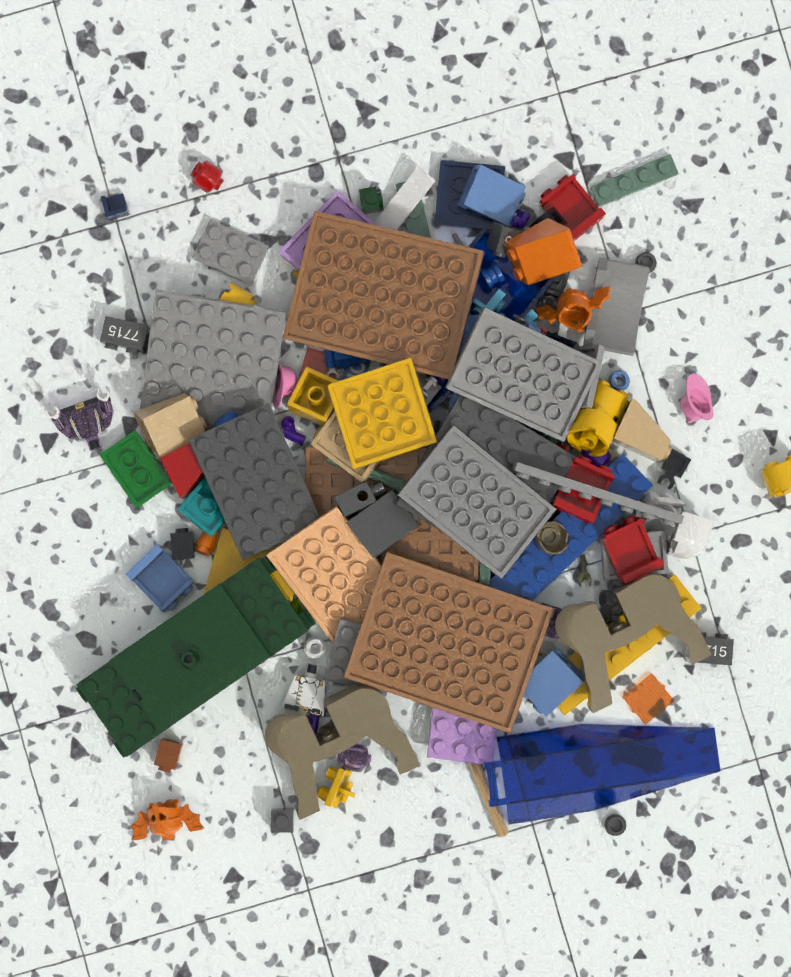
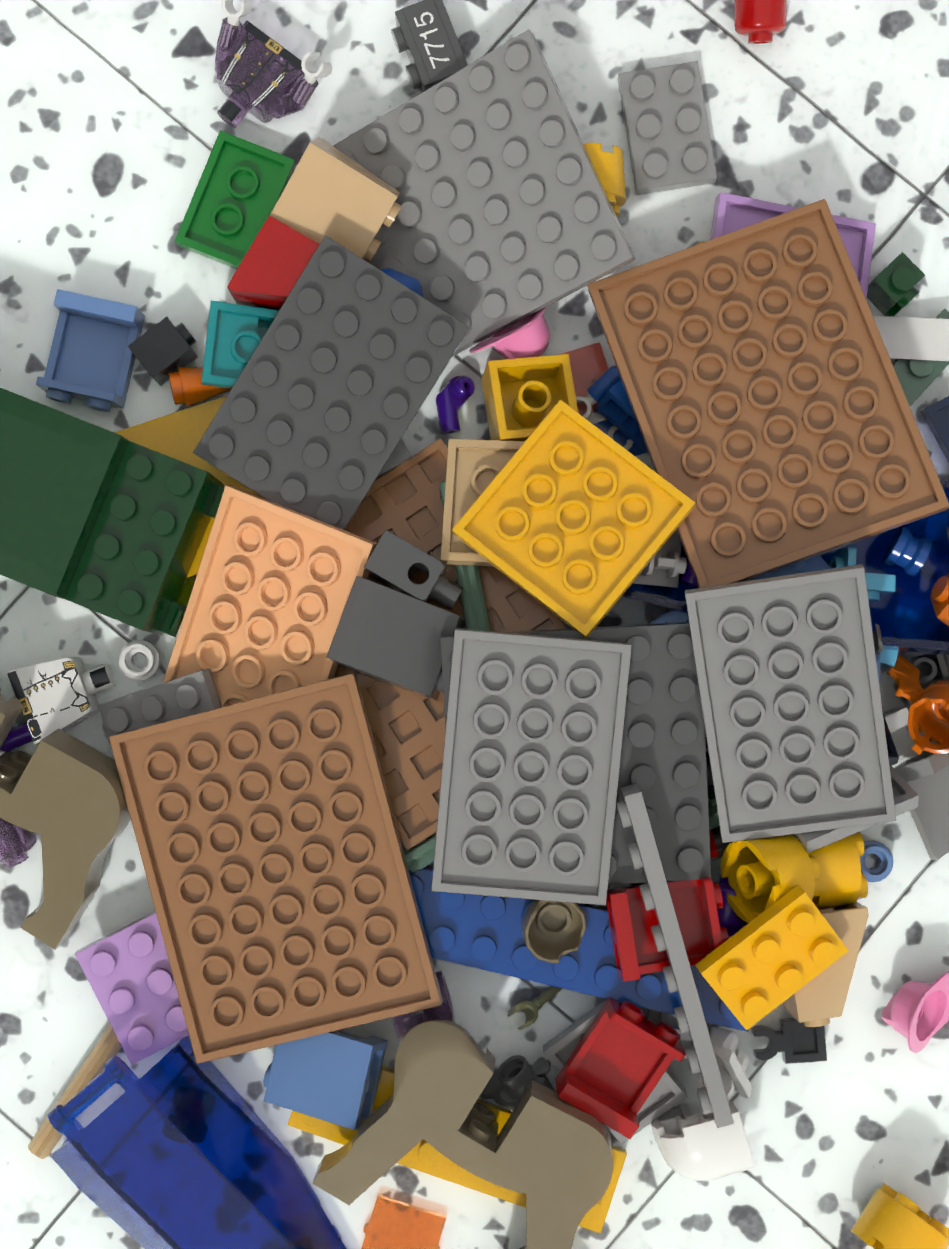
camera: 60 degrees right, 0 degrees up
(625, 453) = (772, 957): none -> yellow plate

